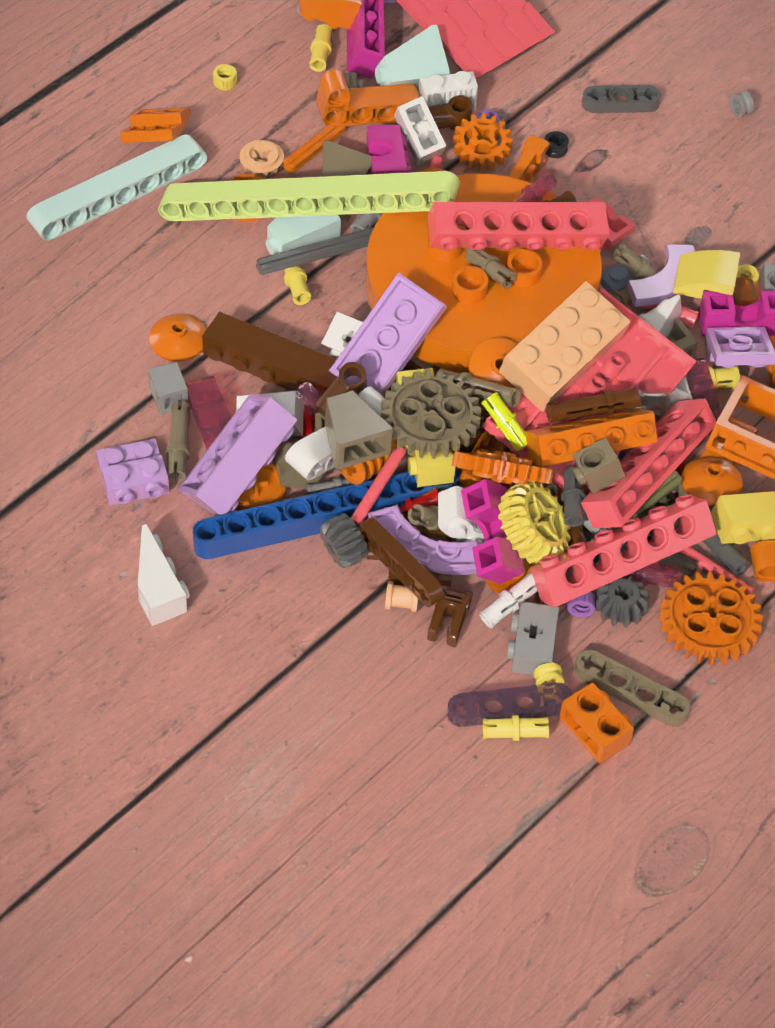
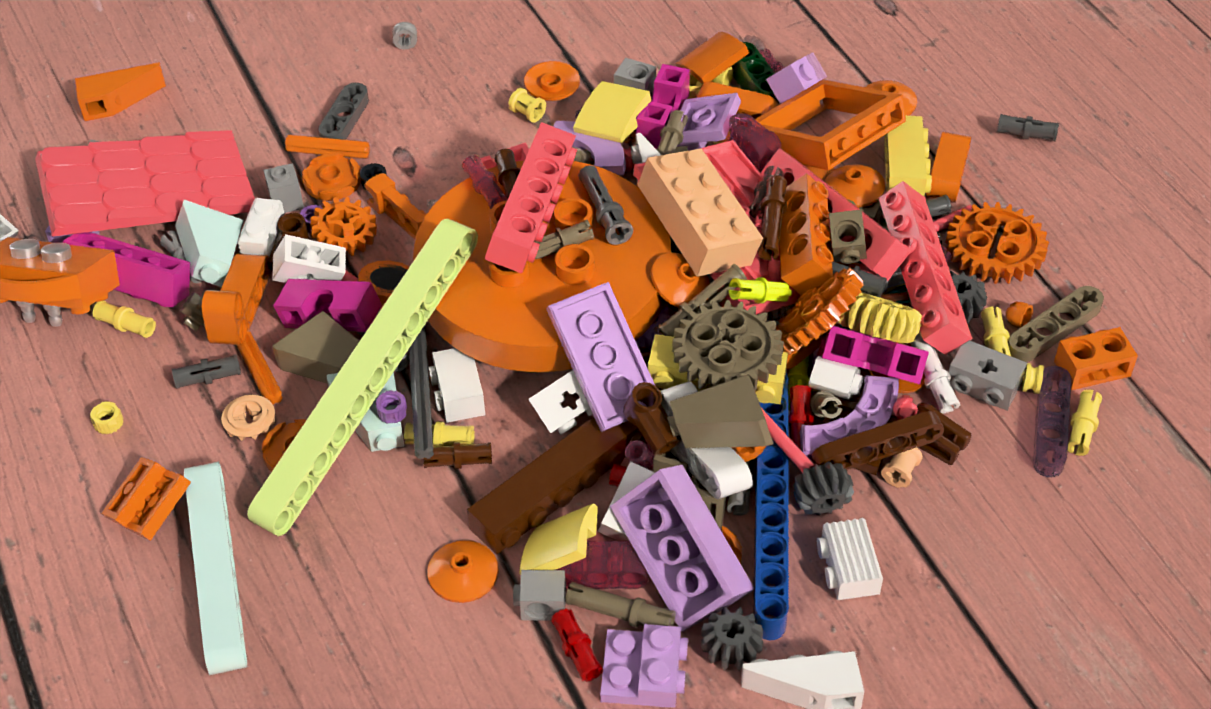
camera: 65 degrees left, 5 degrees down
(135, 423) = (576, 645): none -> red pin
(175, 518) = (732, 638): none -> dark grey gear
(209, 375) = (560, 540): none -> light yellow slope
(281, 297) = (460, 455): none -> reddish brown pin
(284, 107) = (184, 375): none -> dark grey pin
(285, 580) = (850, 559): none -> white brick
(292, 223) = (391, 398): none -> medium lavender axle
(344, 273) = (458, 385): none -> white brick
(458, 578) = (904, 407): none -> coral arm
(503, 89) = (284, 186): none -> light grey brick
(539, 288) = (593, 183): none -> dark grey pin
(543, 115) = (331, 177): none -> orange tile
(575, 102) = (322, 146): none -> orange axle
(586, 641) = (995, 335): none -> light yellow pin
(632, 650) = (1019, 313): none -> orange hinge
(698, 324) = (673, 133): none -> dark tan axle
(702, 213) = (527, 105): none -> light yellow bush
(722, 381) = (753, 138): none -> clear pink piece
(740, 225) = (552, 80): none -> orange dish

